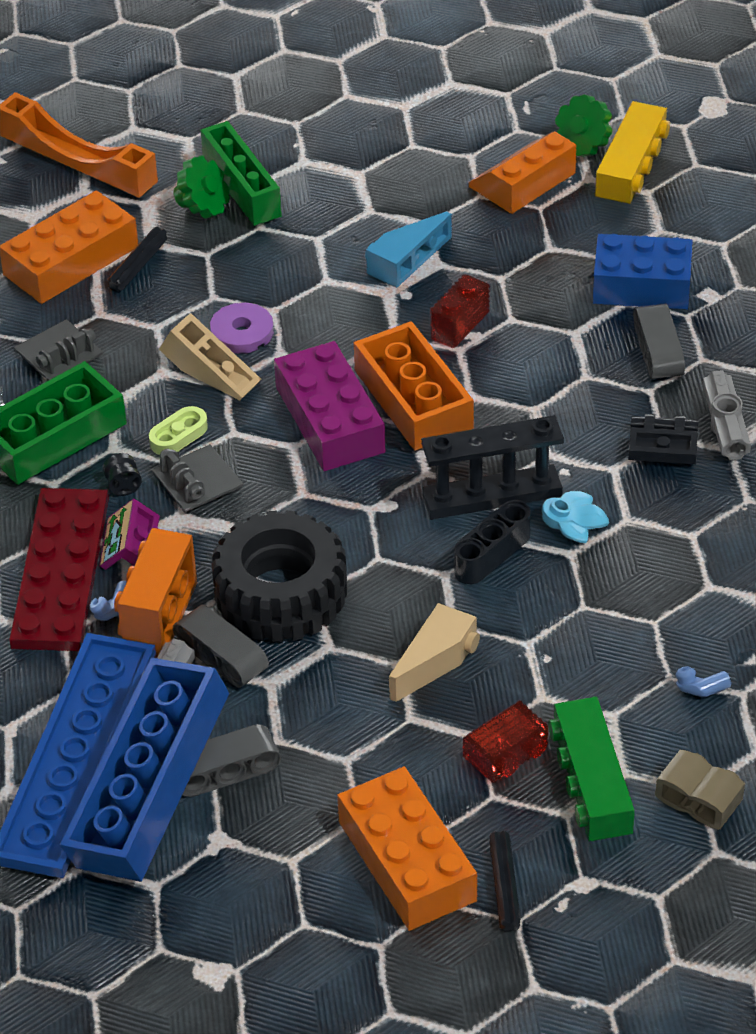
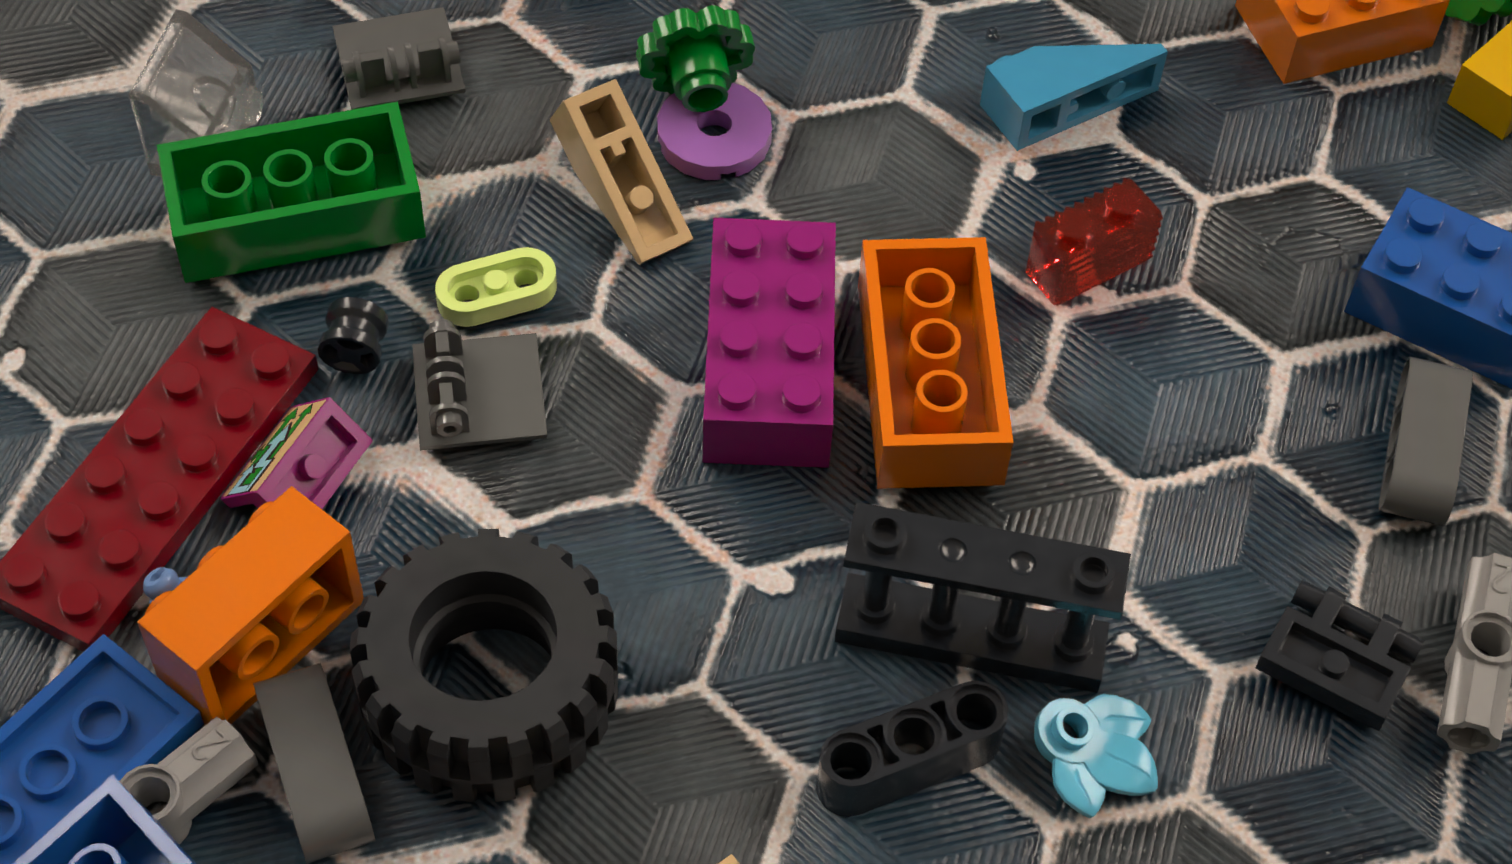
camera: 20 degrees right, 10 degrees up
(218, 293) = (696, 55): none -> green plant

